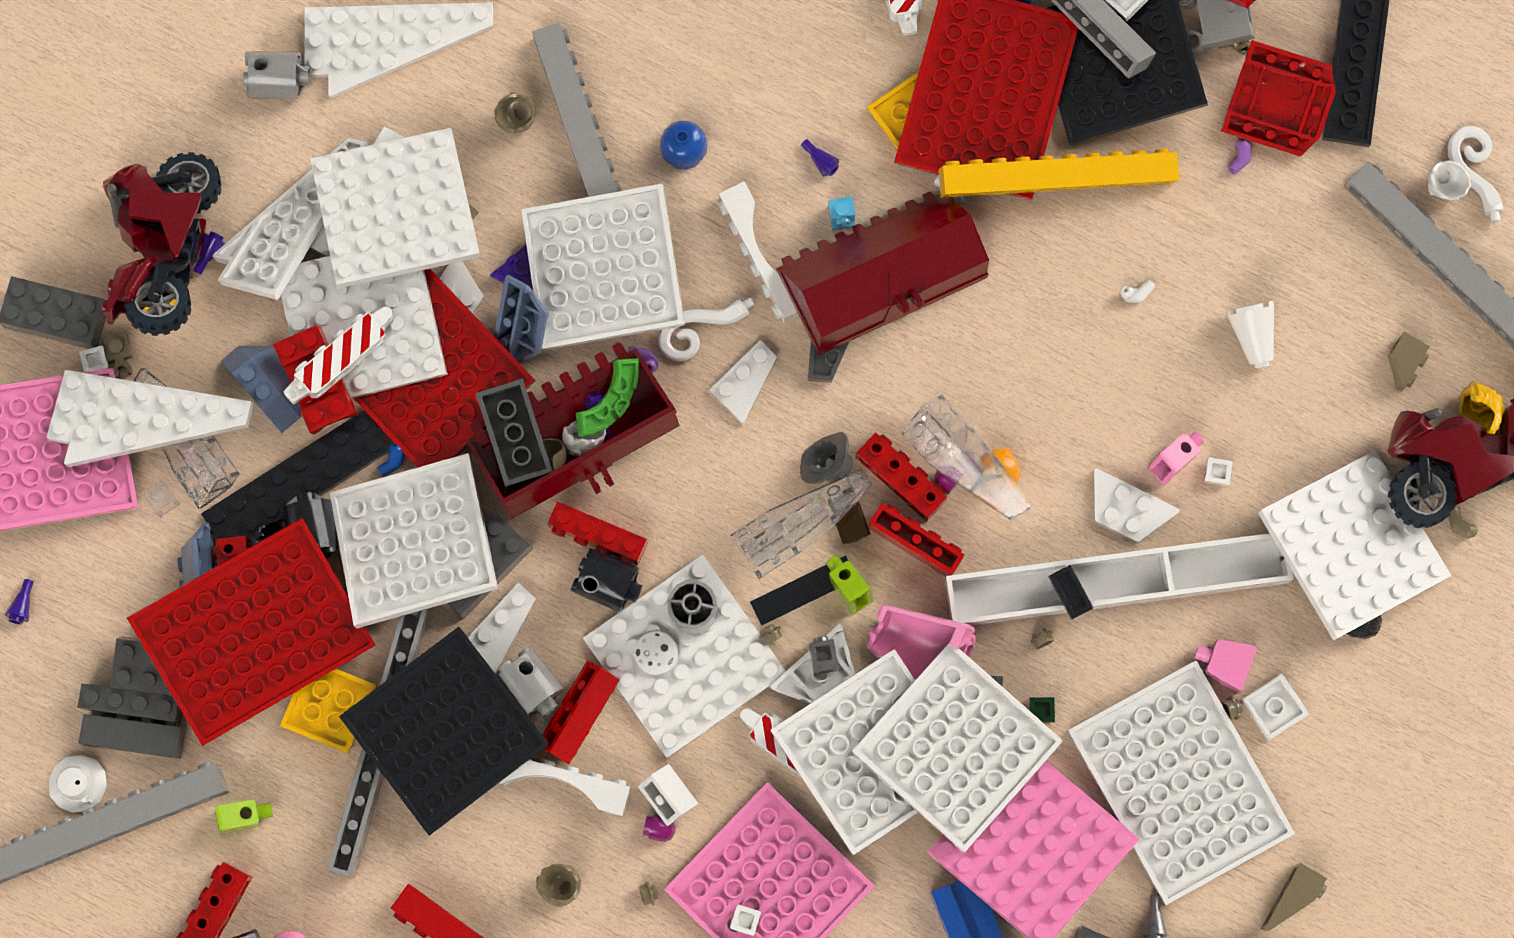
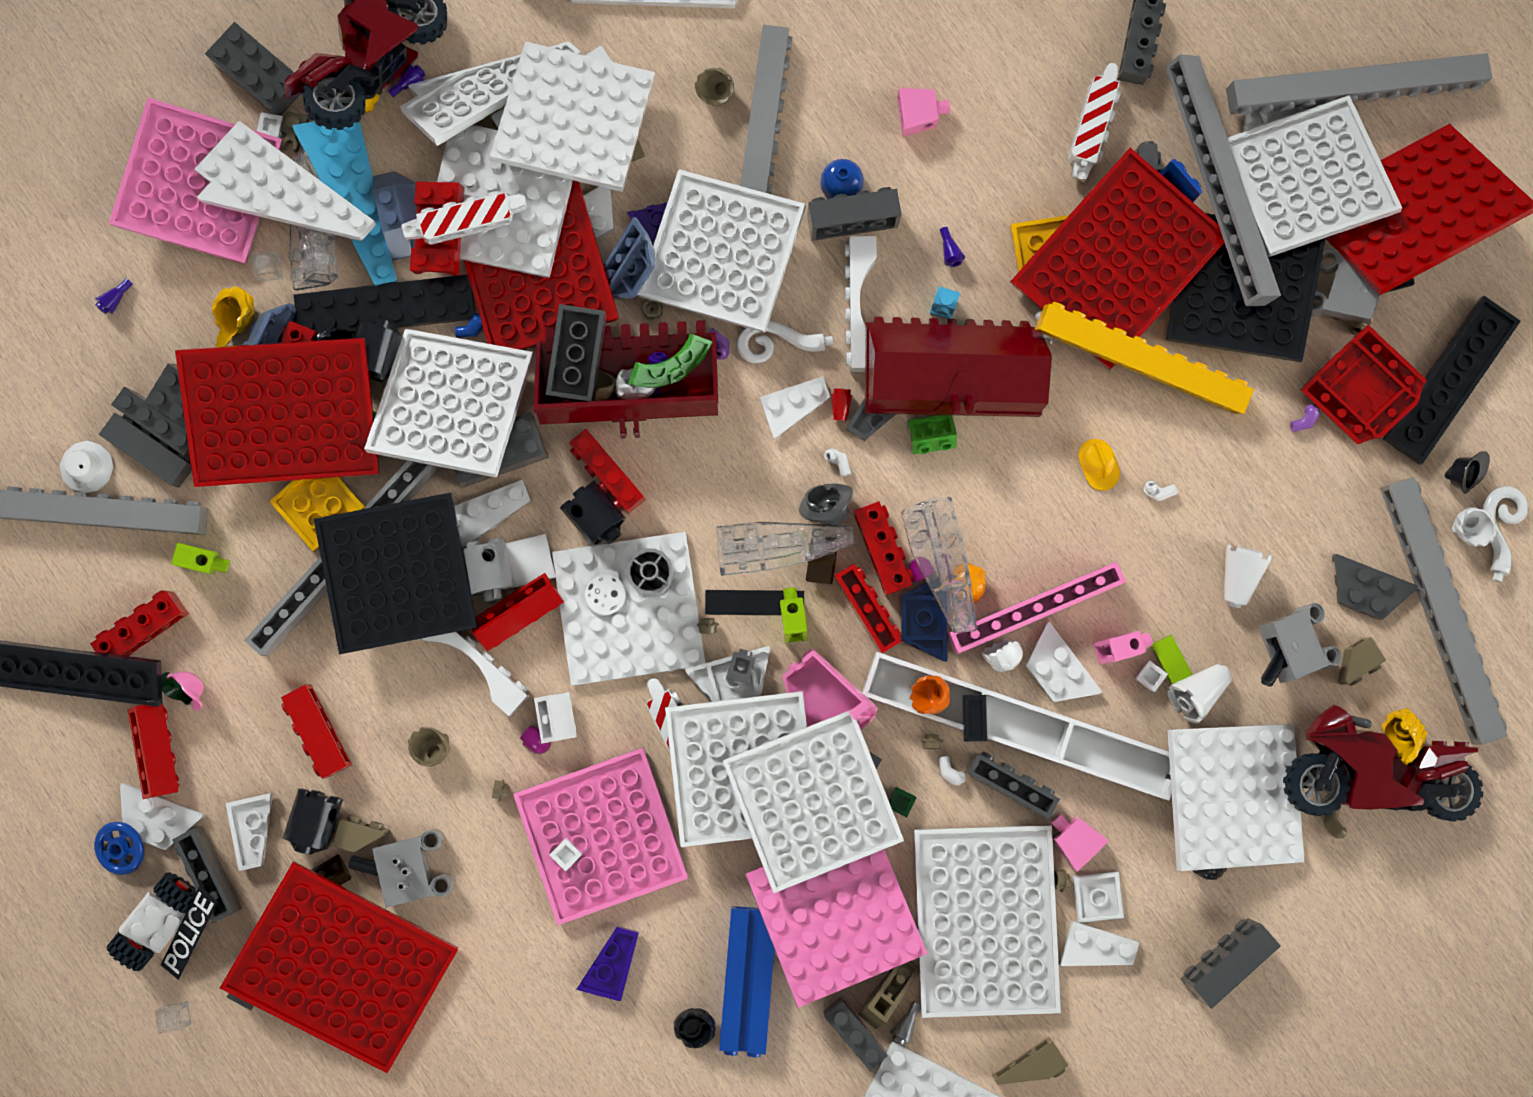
camera: 25 degrees right, 5 degrees up
(152, 561) = (232, 313): none -> yellow hair
(189, 364) = (344, 167): none -> medium azure wing
(561, 363) = (656, 314): none -> dark tan plate
(565, 656) = (530, 559): none -> white tile
(712, 170) = (853, 214): none -> dark grey brick
(724, 40) = (919, 109): none -> bright pink torso
(790, 357) = (841, 403): none -> red cone
(816, 411) = (840, 459): none -> white arm
(893, 344) = (932, 434): none -> bright green bracket
(977, 527) = (924, 622): none -> dark blue wing
(1017, 591) = (930, 695): none -> orange hair
(1067, 295) = (1099, 464): none -> yellow piece
(1068, 521) = (1003, 655): none -> white hair
(1073, 660) = (950, 774): none -> white arm
(1077, 459) = (1038, 607): none -> bright pink brick
(1123, 898) = (888, 994): none -> dark tan slope
(1138, 640) = (1011, 785): none -> dark grey brick
(1229, 447) = (1171, 659): none -> lime tile
(1271, 463) = (1199, 692): none -> white cone
(1297, 755) = (1096, 947): none -> white wing
(1338, 375) = (1295, 646): none -> light grey piece
(1380, 288) = (1368, 588): none -> dark grey wing
(1417, 131) = (1468, 471): none -> black piece
(1428, 703) = (1230, 962): none -> dark grey brick

